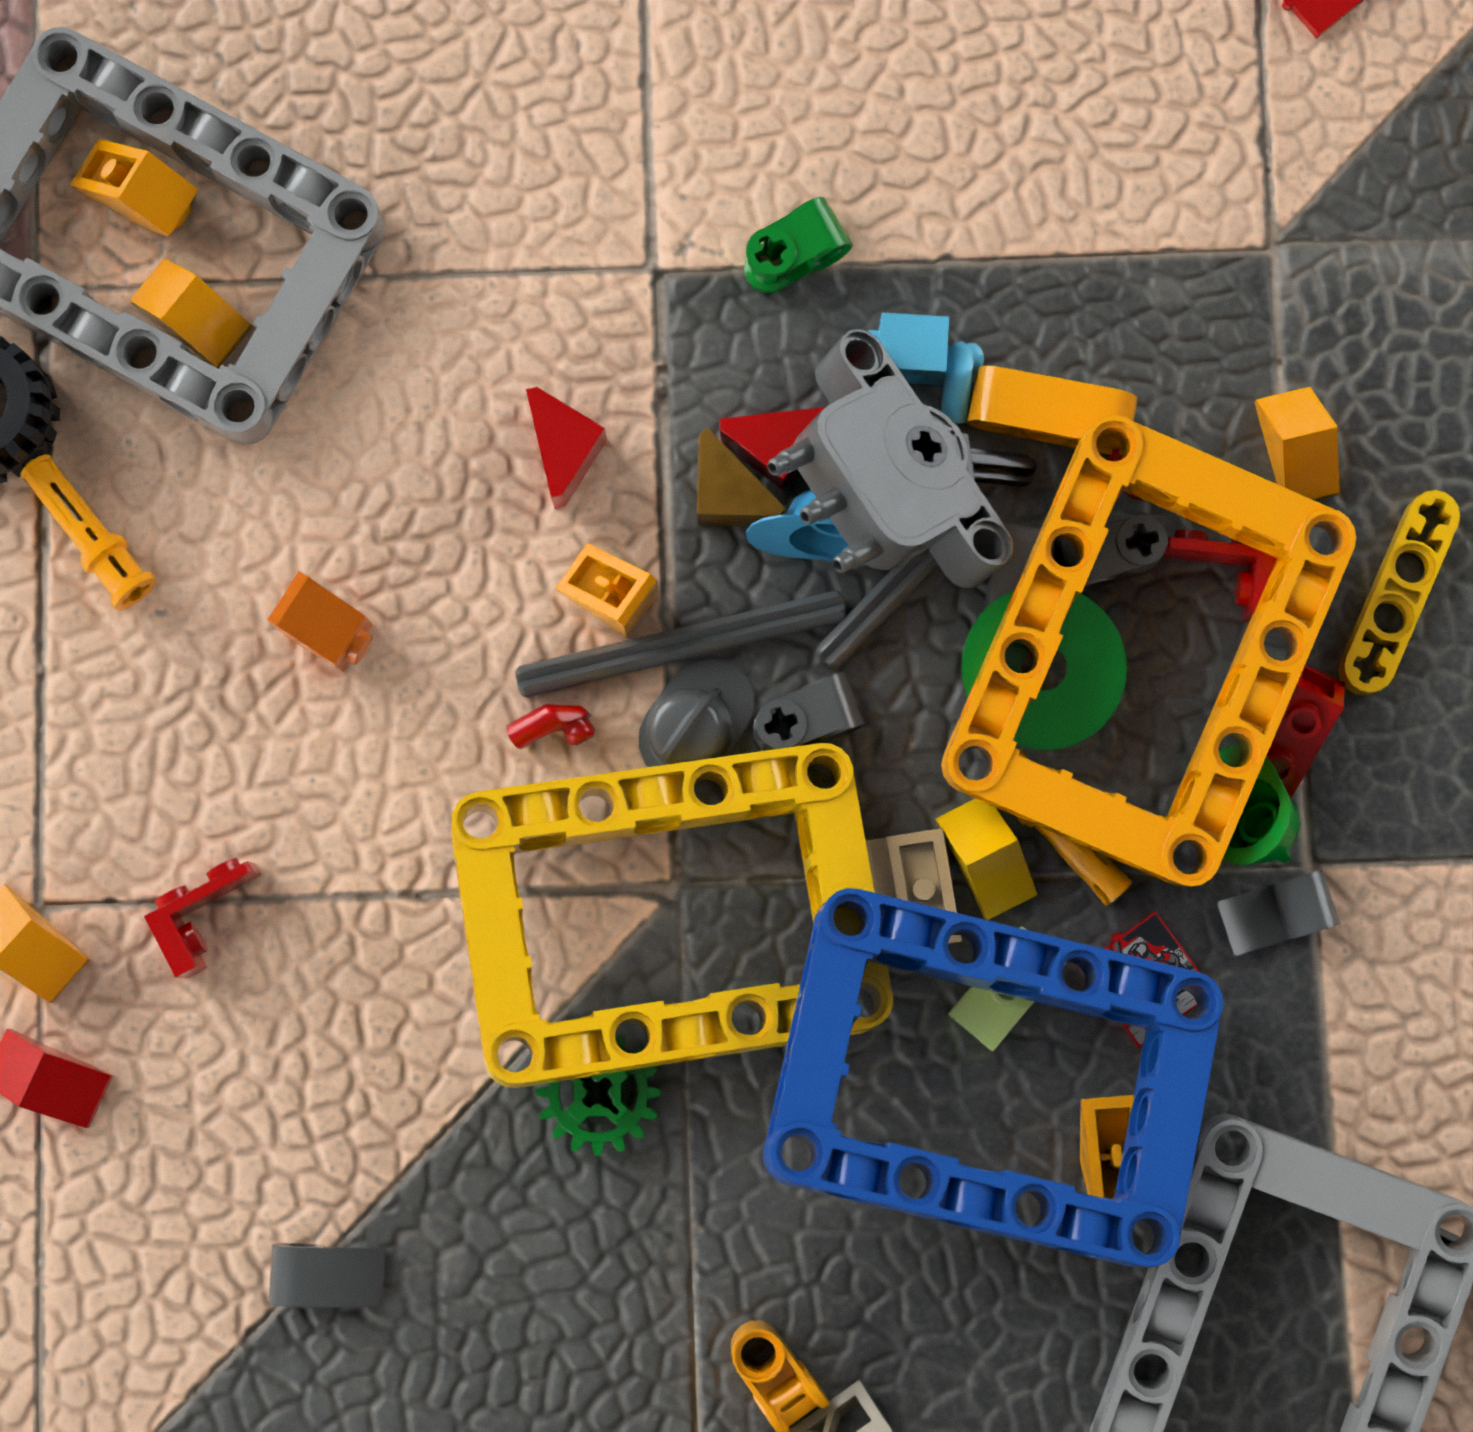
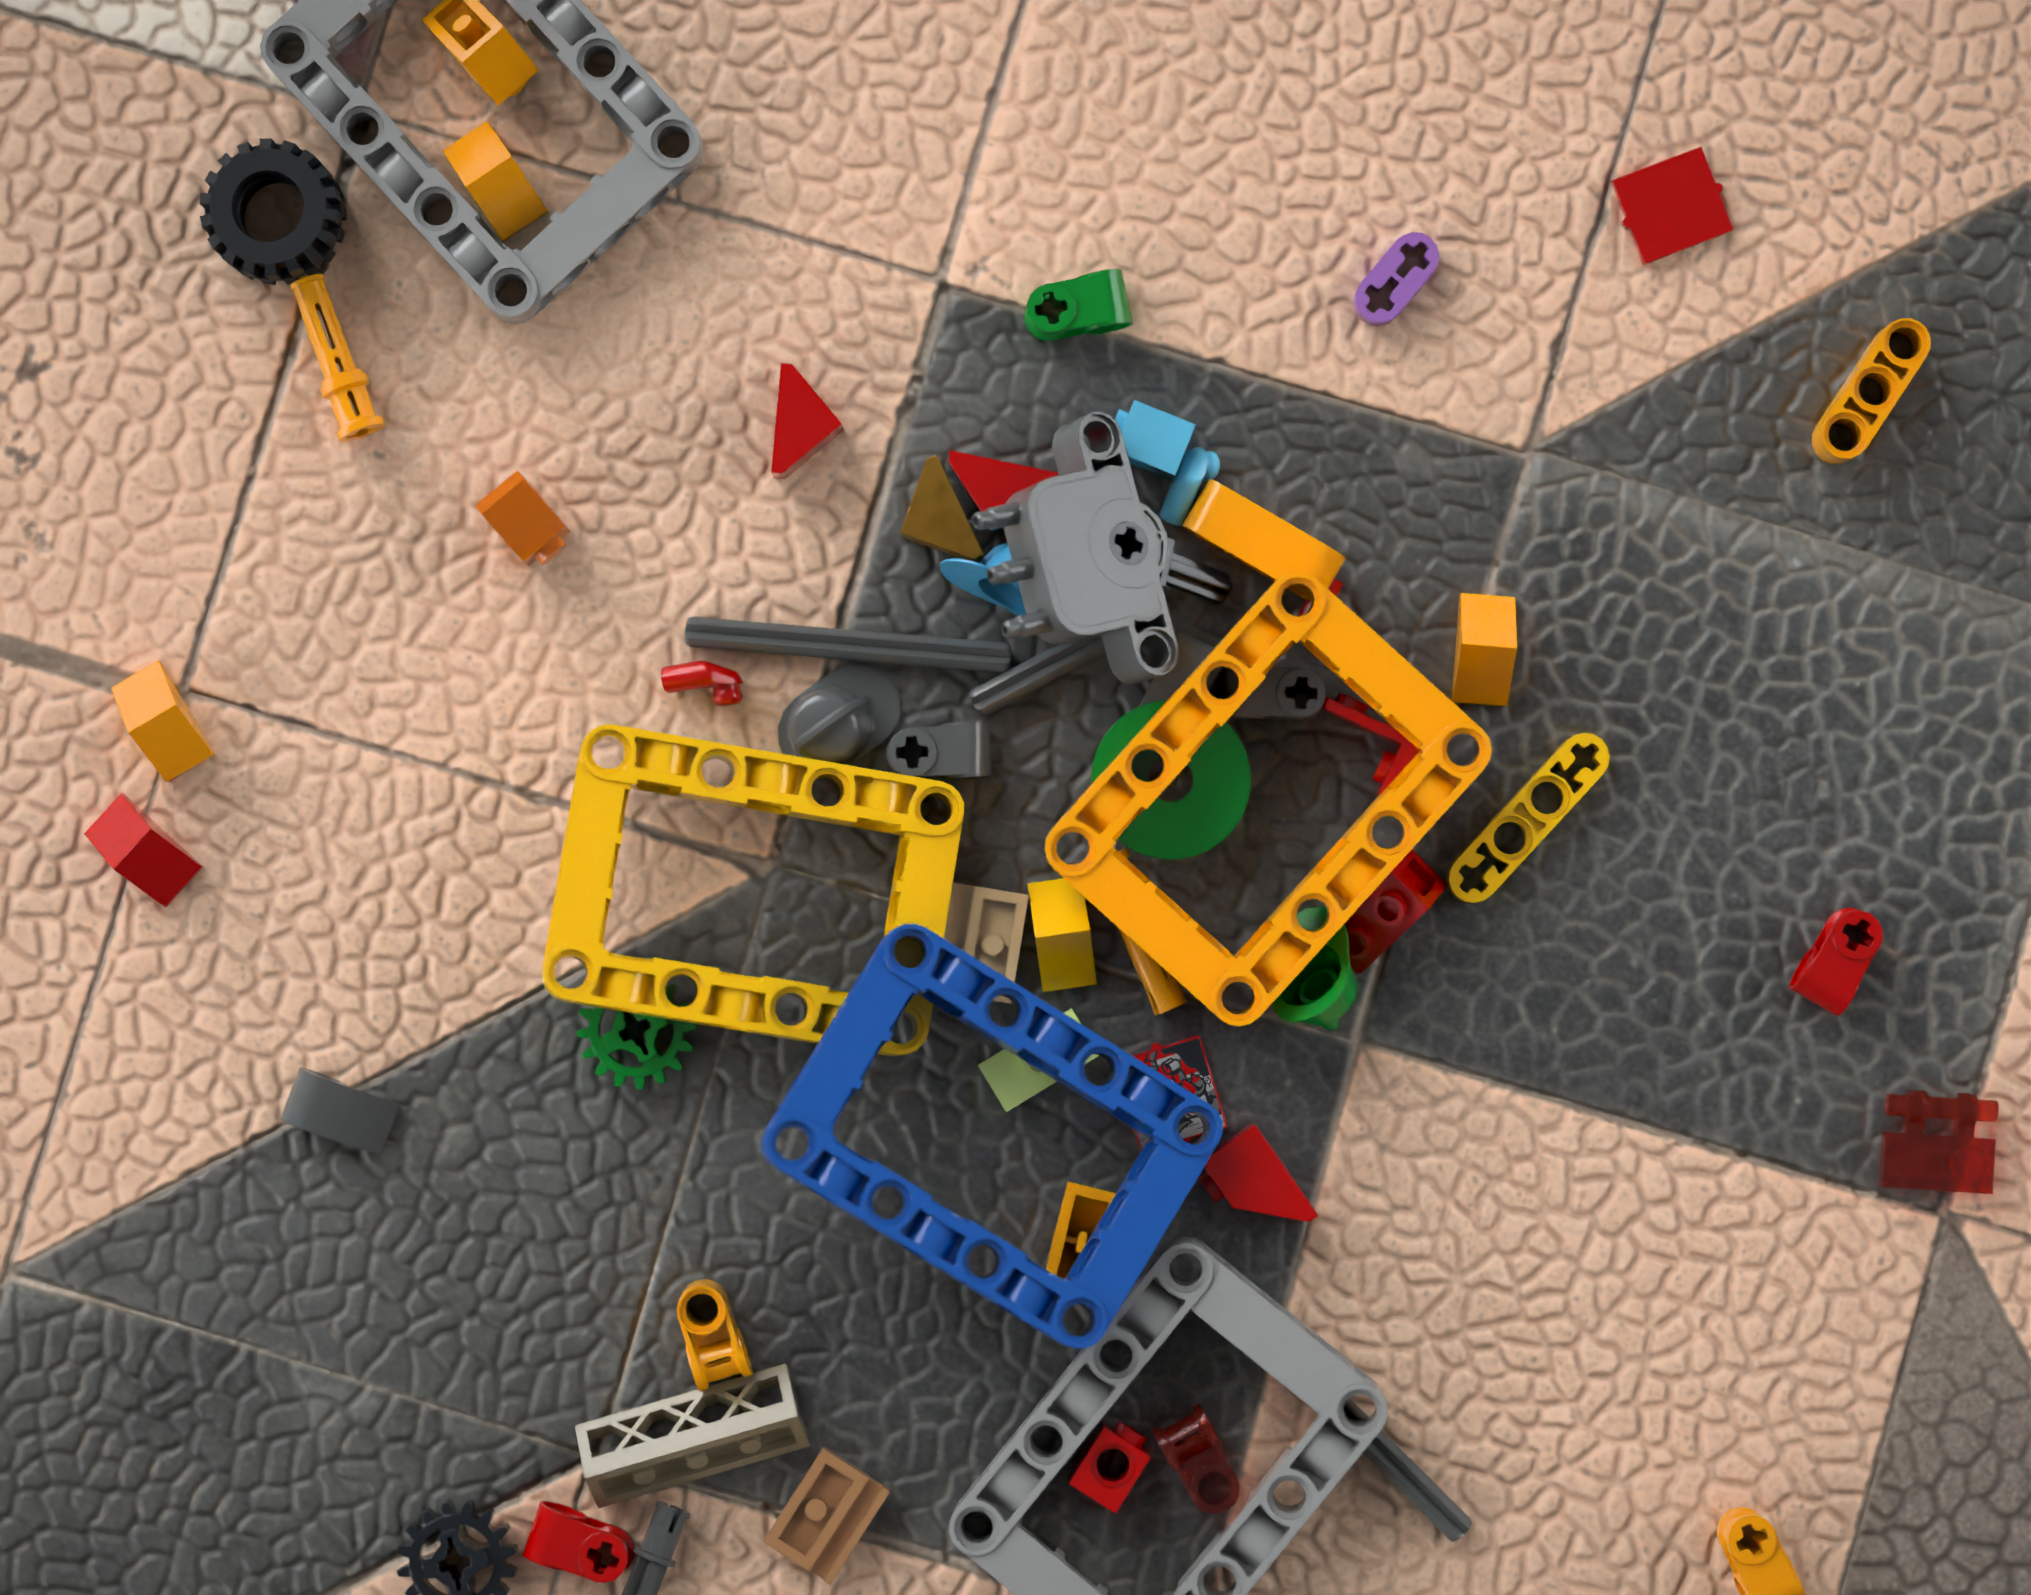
camera: 20 degrees right, 5 degrees up
(183, 942) = (305, 769): red bracket -> none
(609, 588) = (797, 571): light orange slope -> none
(1100, 128) = (1386, 270): none -> medium lavender beam
(1232, 1397) = (1106, 1489): none -> red brick
(1264, 1034) = (1254, 1178): none -> red slope
(1278, 913) = (1309, 1074): dark grey panel -> none
(1300, 1332) = (1197, 1457): none -> clear red piece

